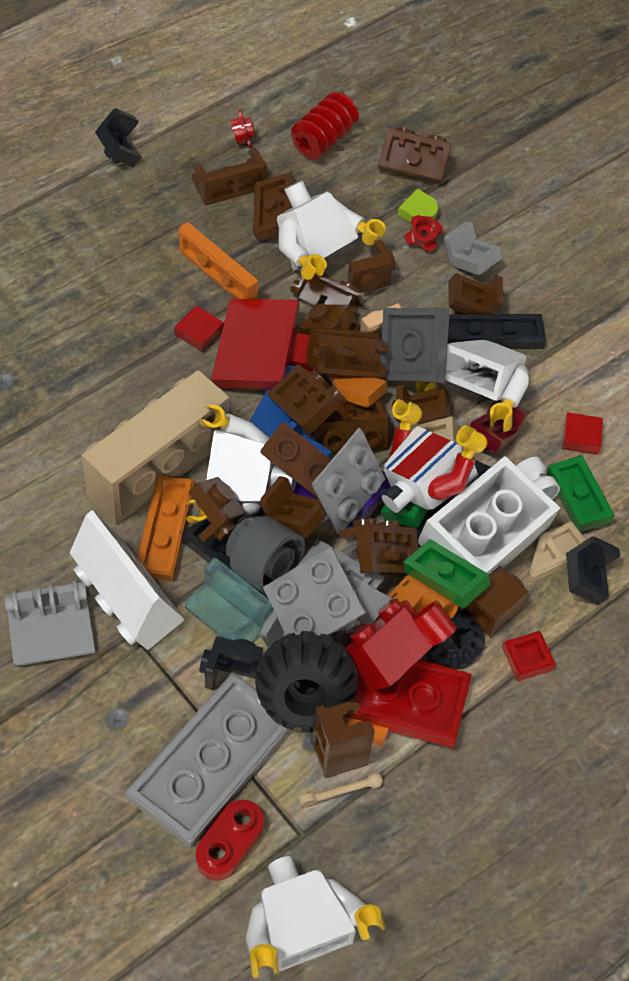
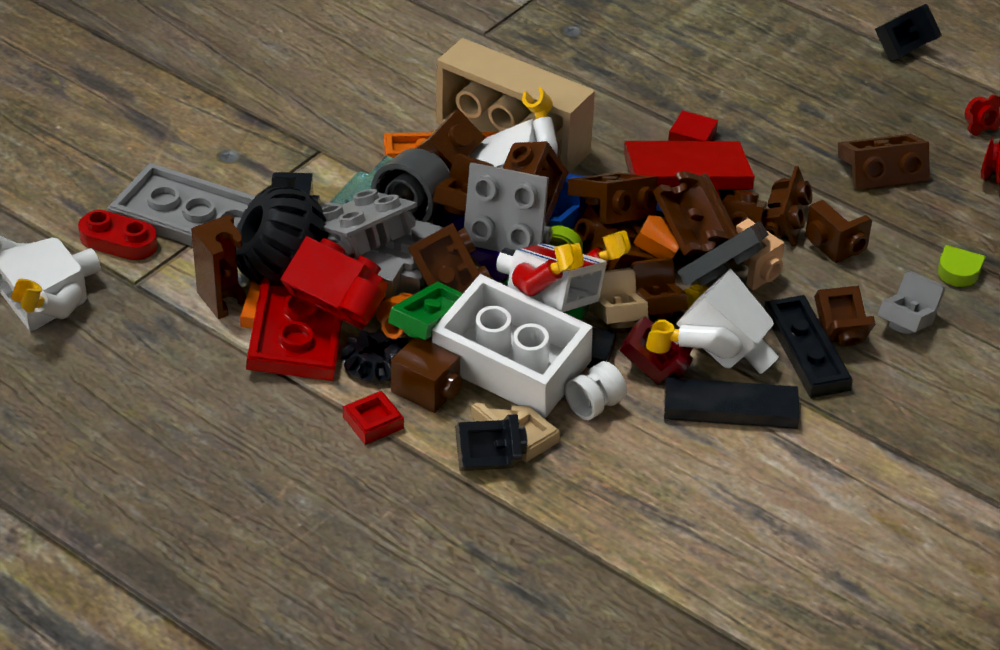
camera: 80 degrees right, 15 degrees down
(49, 623) = (312, 94): light grey hinge -> none
(122, 583) = (356, 111): white slope -> none
(217, 263) = (777, 123): orange tile -> none
(231, 180) = (902, 117): reddish brown hinge -> none
(318, 228) = (852, 167): white torso -> none
(373, 780) = (198, 319): tan hinge -> none
(425, 224) = (923, 263): red plate -> none
(550, 399) = (731, 403): none -> black tile
(581, 494) = (599, 433): green plate -> none
(582, 433) = (693, 435): red tile -> none

